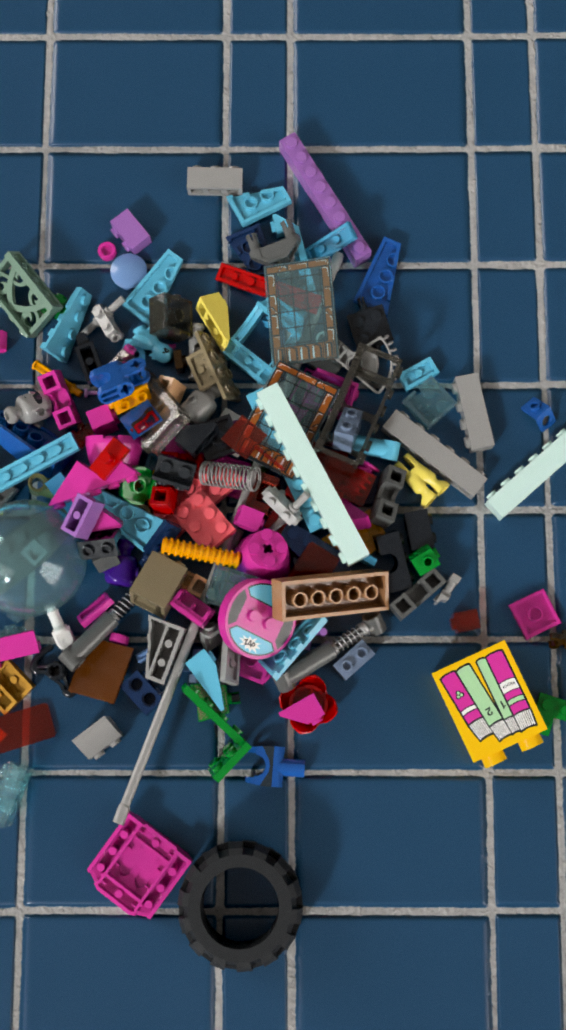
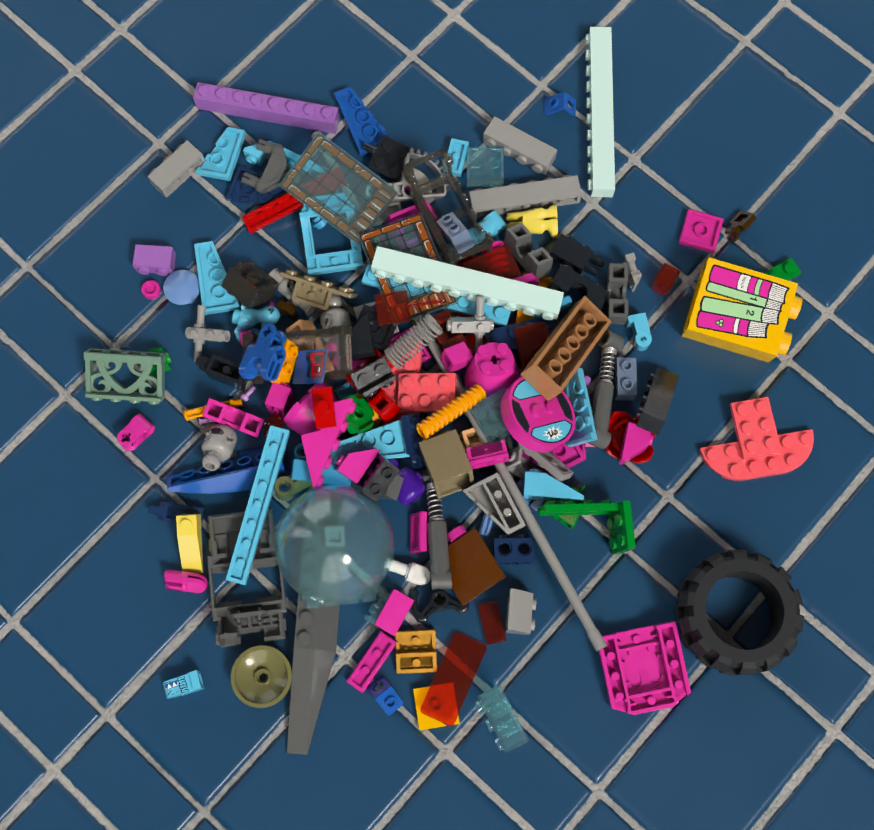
camera: 50 degrees left, 5 degrees down
(64, 334) = (185, 369): medium azure wing -> none
(76, 723) = (492, 623): none -> clear red tile
(82, 516) = (347, 467): medium lavender brick -> none
(214, 313) = (281, 254): light yellow slope -> none
(276, 766) = (656, 501): blue connector -> none
(332, 242) = (305, 127): dark azure tile -> none
(352, 700) = (657, 400): none -> black brick
(393, 810) = (759, 447): none -> coral plate
(406, 637) = (640, 331): none -> medium azure leg
(425, 559) = (598, 265): green brick -> none

